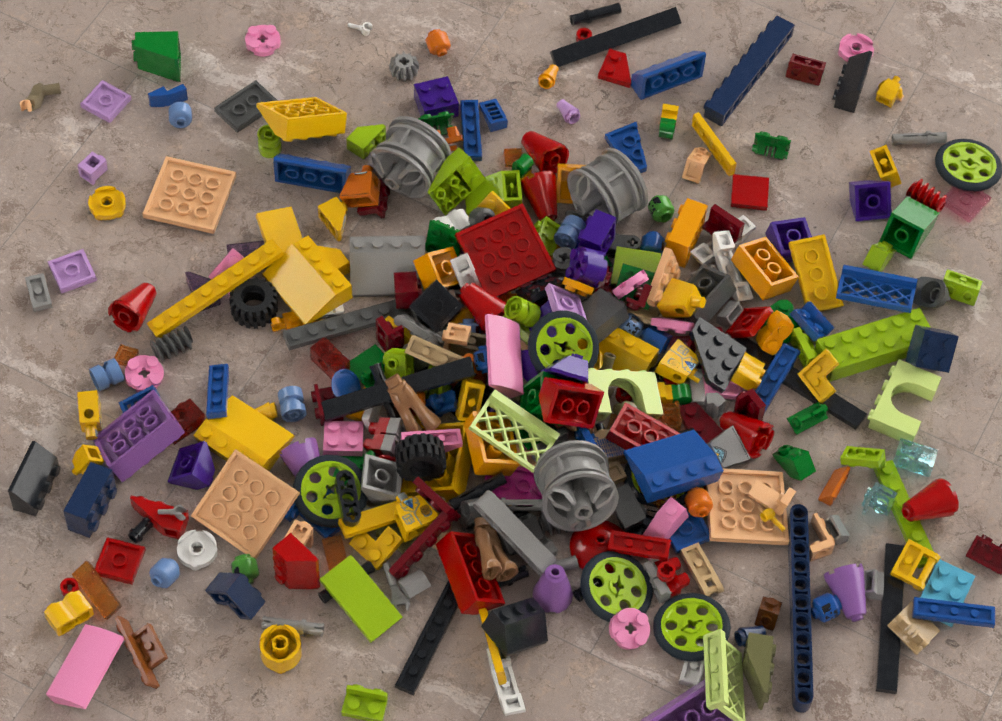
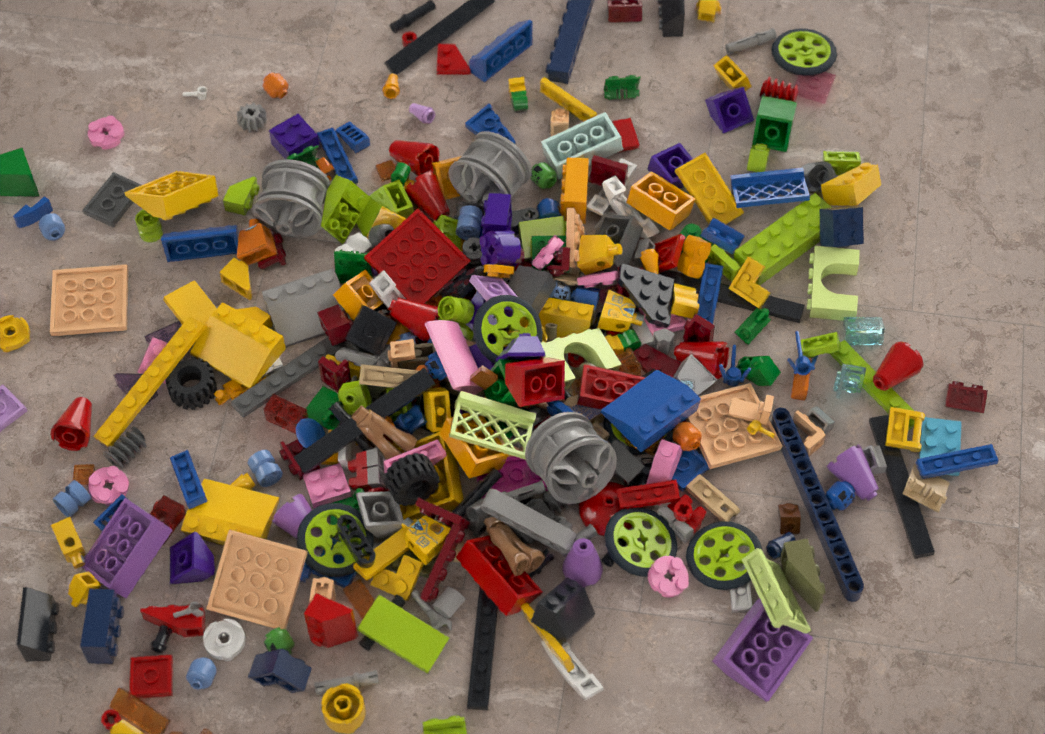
camera: 15 degrees left, 0 degrees up
(522, 384) = (483, 377): none -> dark orange tile
(712, 186) = (584, 140): none -> light aqua brick
(730, 323) = (650, 260): none -> light orange cone
(769, 459) = (733, 375): none -> blue plant
(838, 470) = (802, 364): none -> blue plant
(960, 312) = (852, 186): none -> yellow wedge

